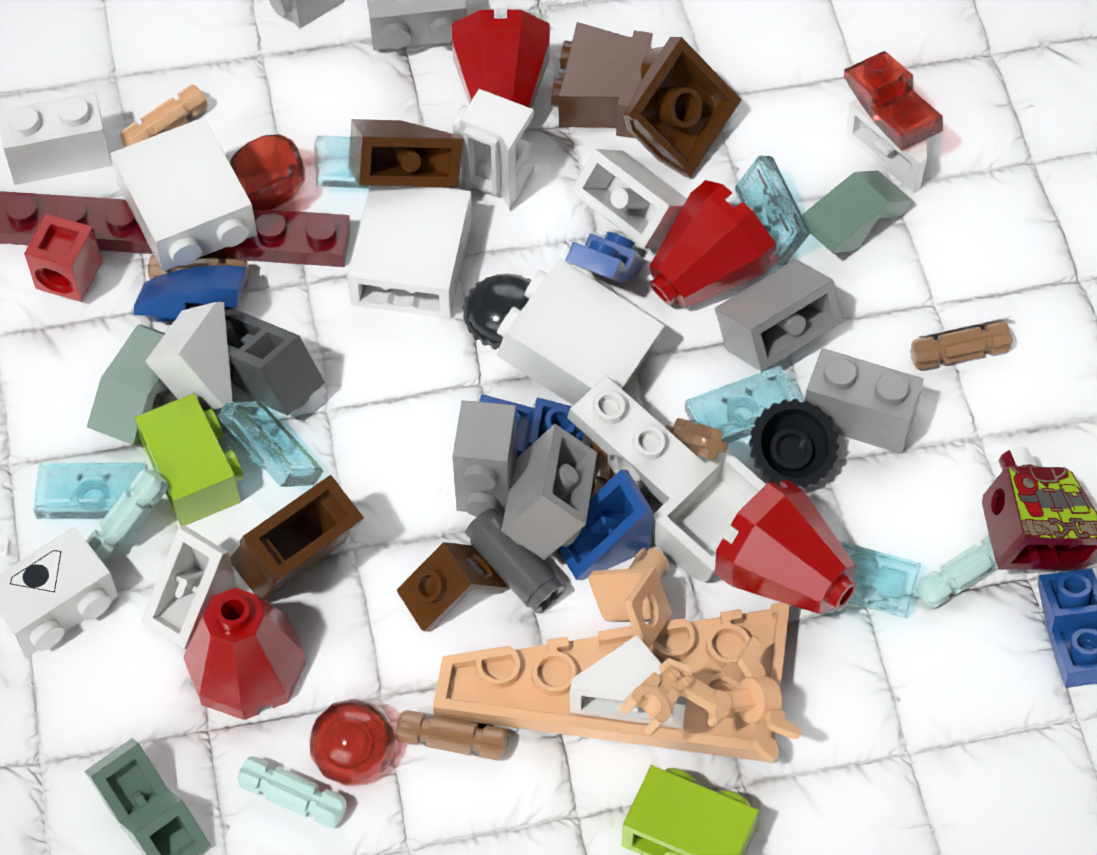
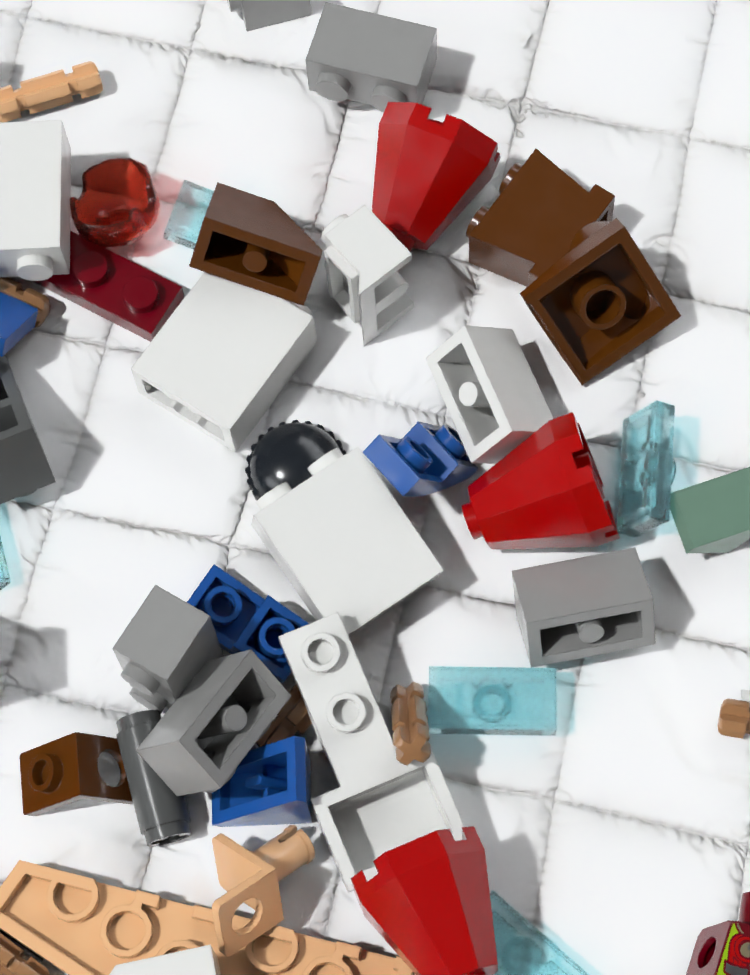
camera: 30 degrees right, 10 degrees up
(794, 444) = (519, 774): black hat -> none
(865, 399) = (624, 751): light grey brick -> none

